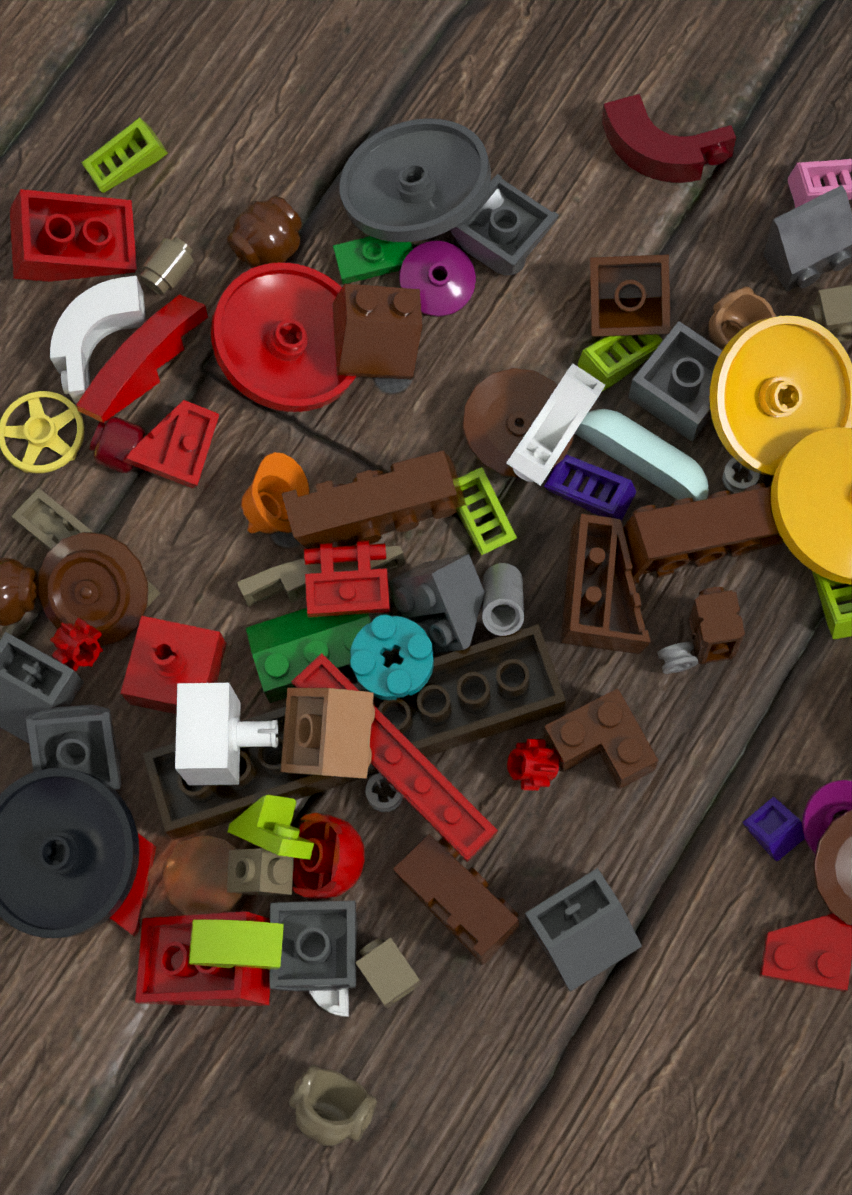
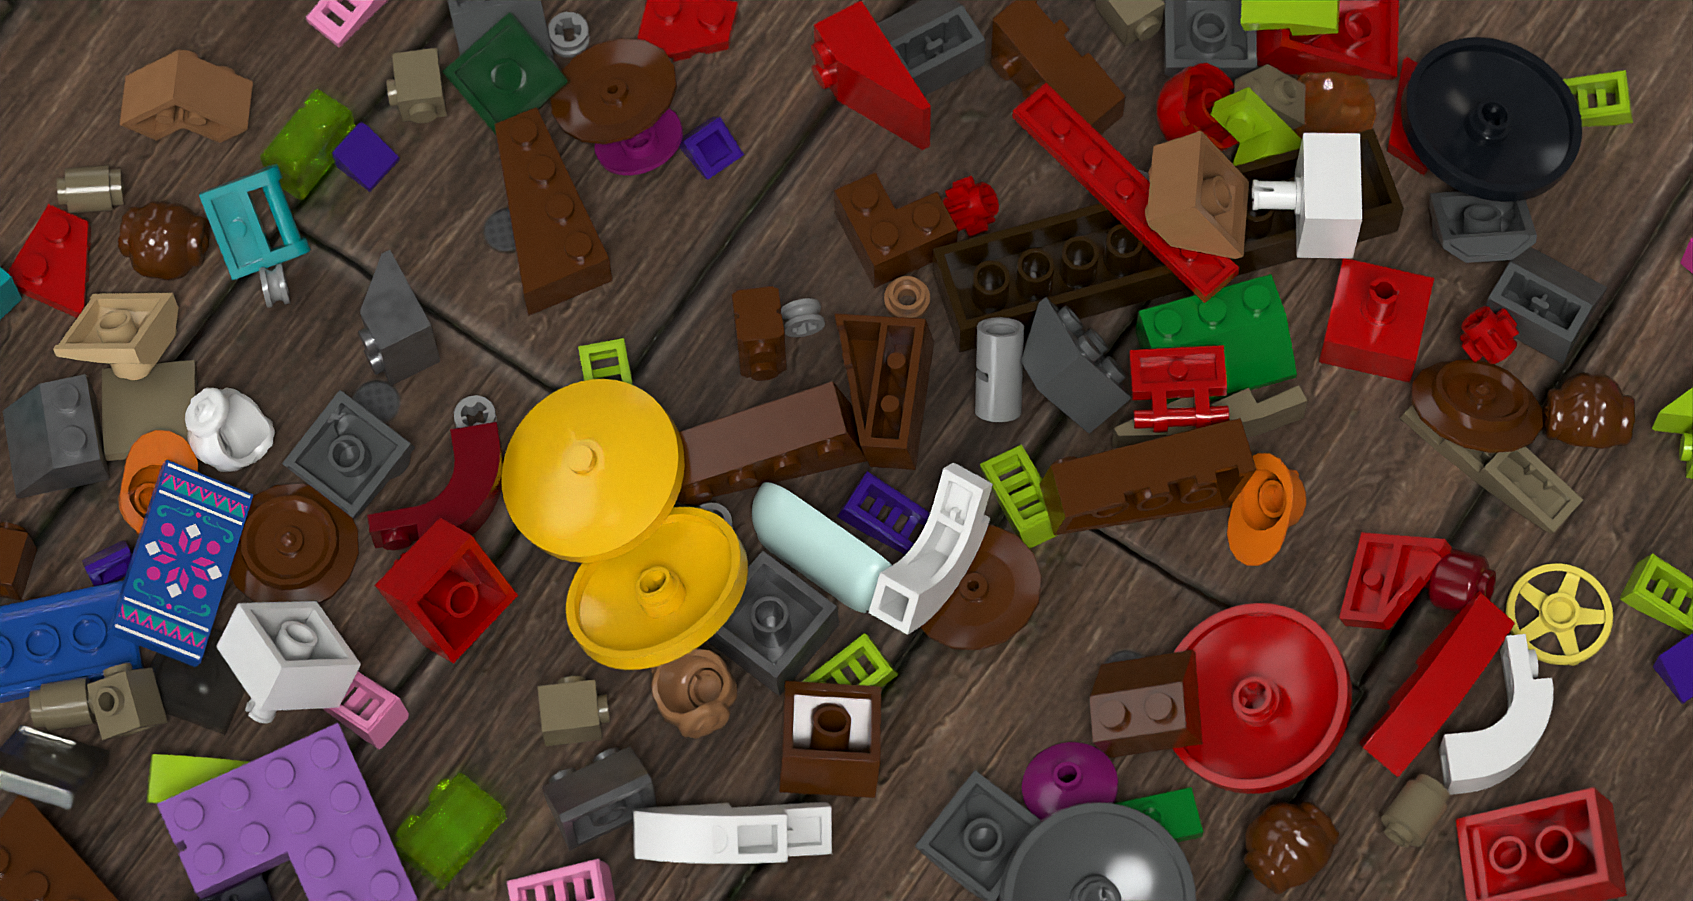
camera: 175 degrees right, 5 degrees down
(398, 680) = (1120, 267): teal plate -> none
(588, 671) = (907, 286): none -> medium nougat plate
(642, 888) = (868, 74): none -> red slope
(717, 215) = (732, 834): none -> white slope

